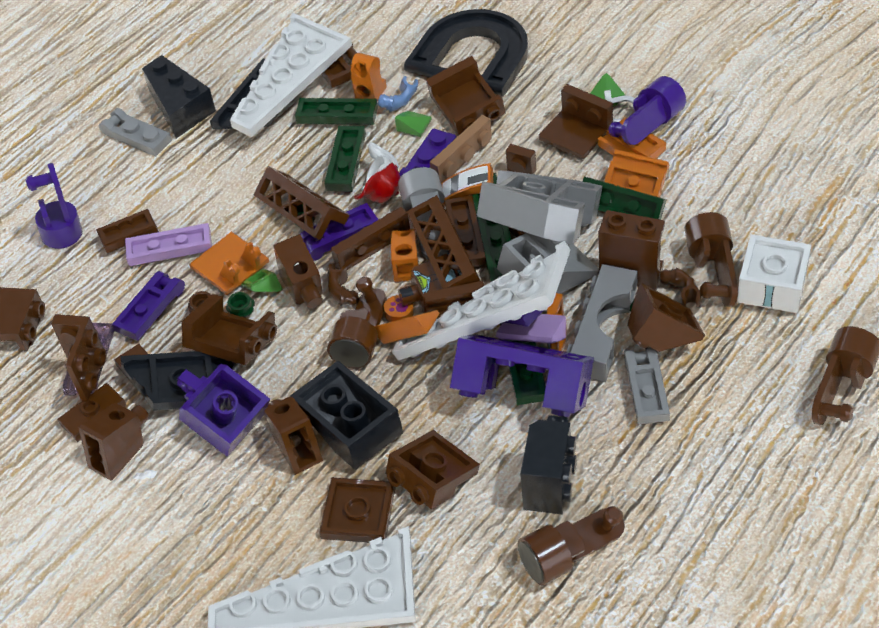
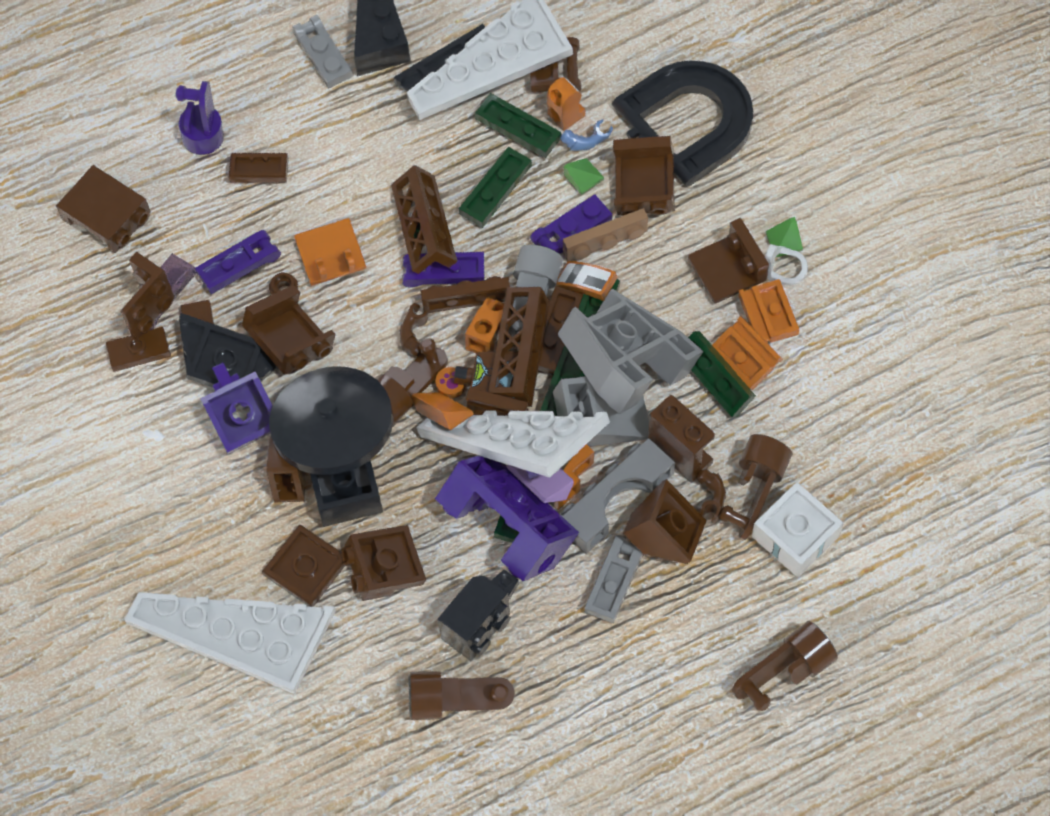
camera: 25 degrees right, 15 degrees up
(112, 438) = (140, 390): reddish brown torso -> none
(168, 244) = (286, 203): lavender plate -> none
(240, 304) = (313, 298): dark green plate -> none
(263, 282) = (347, 288): bright green slope -> none
(302, 279) = (379, 302): reddish brown torso -> none
(316, 368) = (331, 420): none -> black dish
(381, 177) = (514, 229): red hair -> none
(520, 159) = (652, 277): reddish brown plate -> none
(652, 108) = (811, 284): dark purple piece -> none

